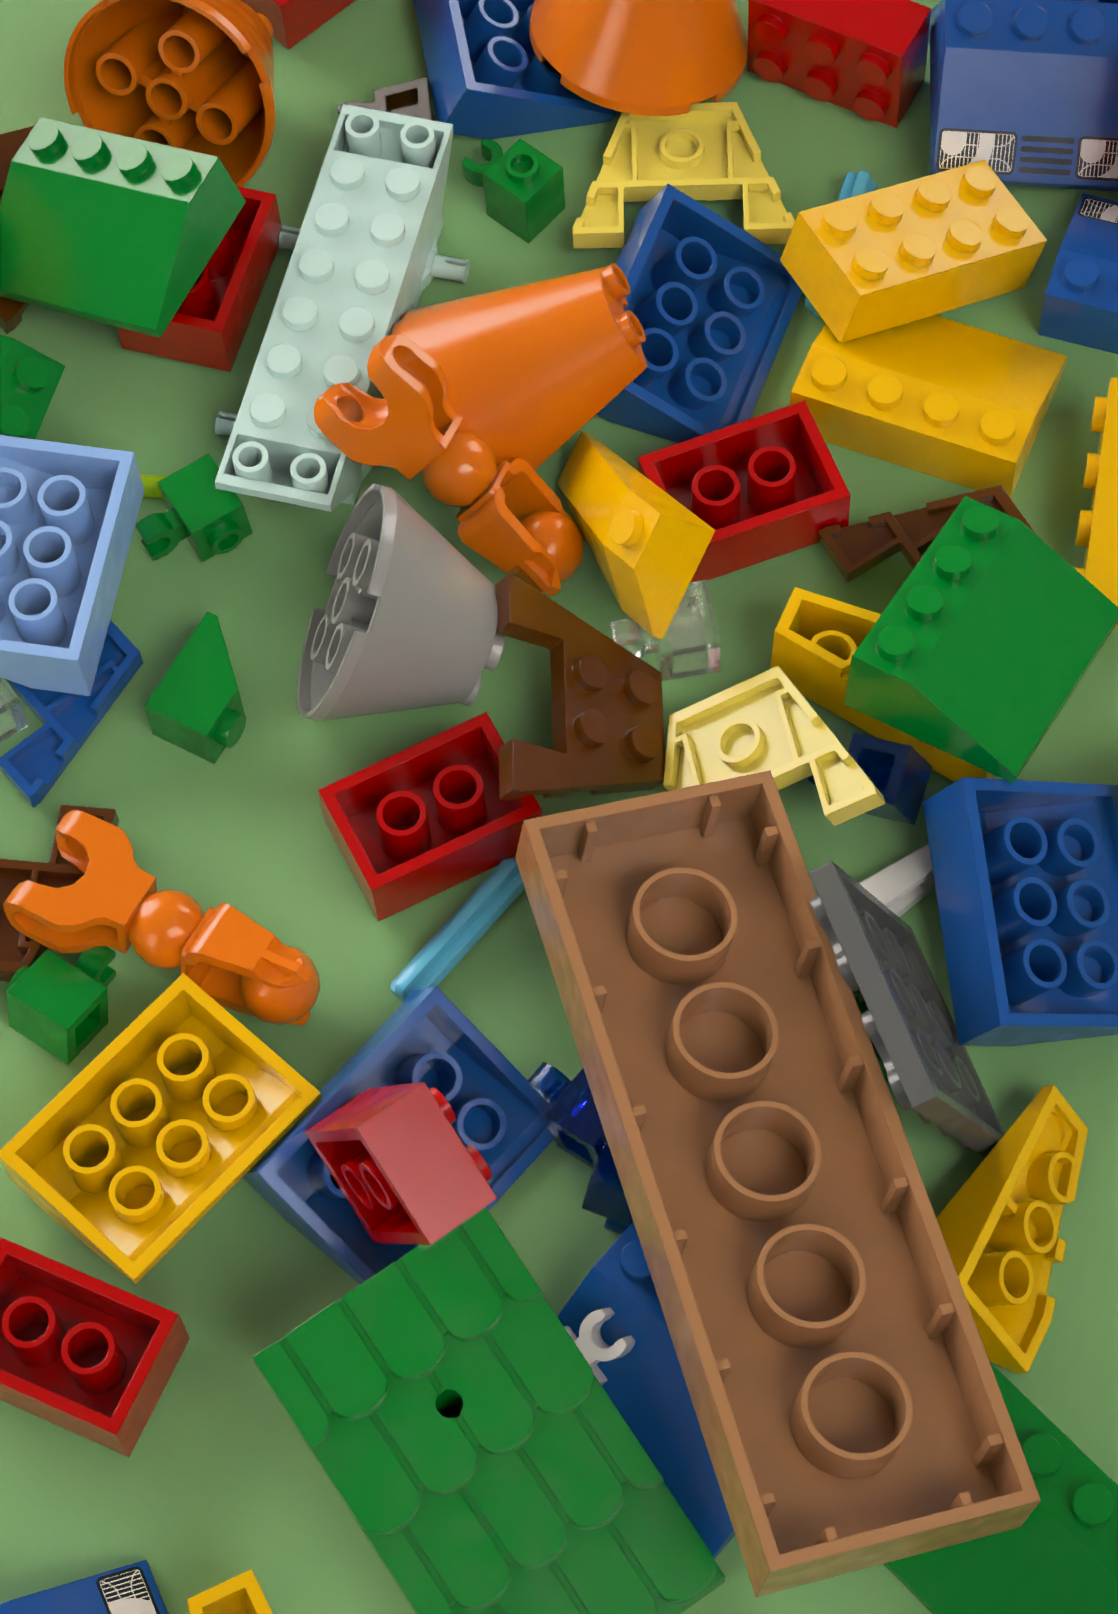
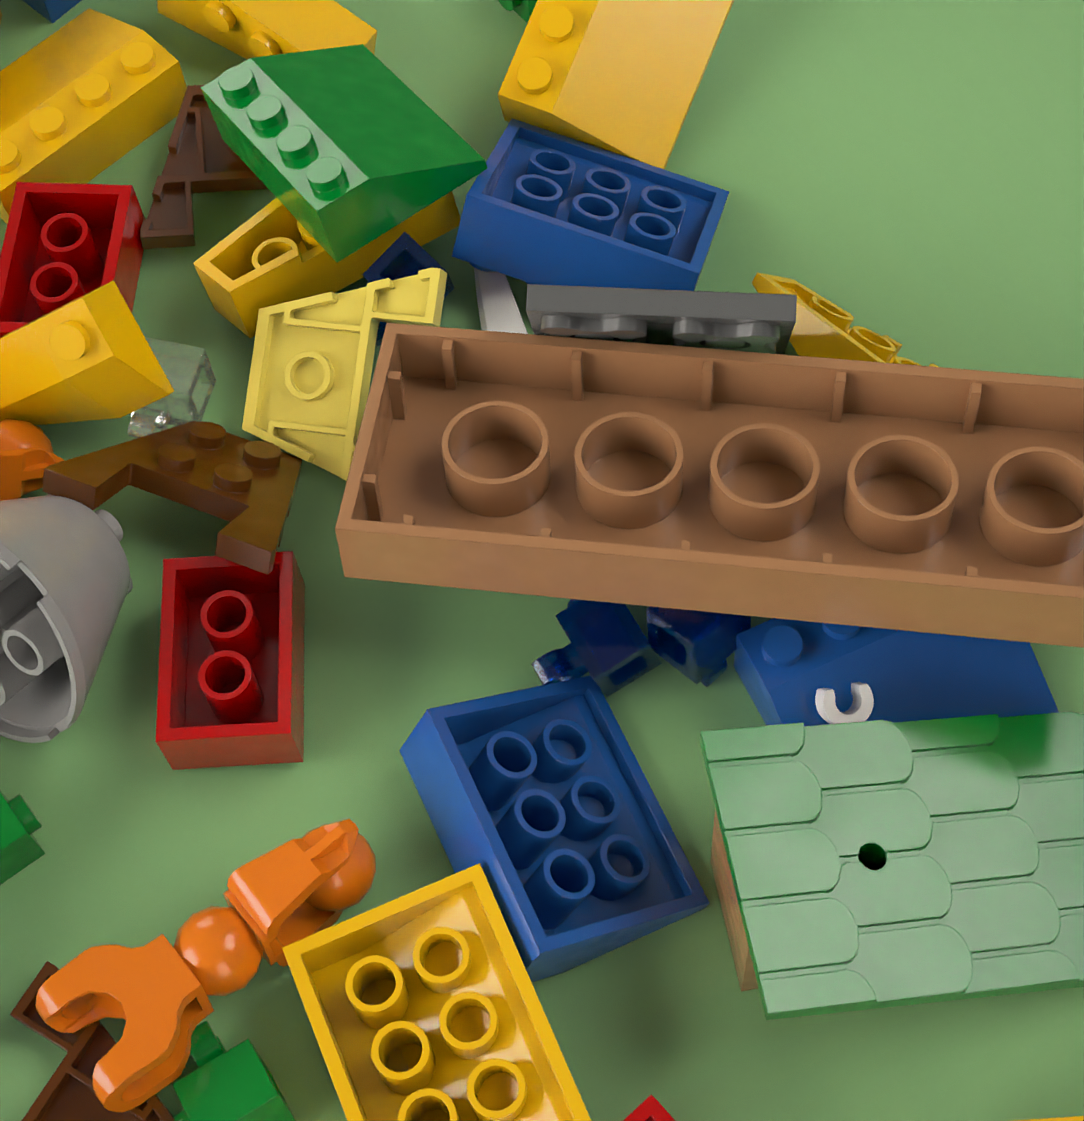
camera: 65 degrees left, 0 degrees up
(403, 1163) = (616, 796): brick -> none
(461, 931) = (356, 690): medium azure axle -> none

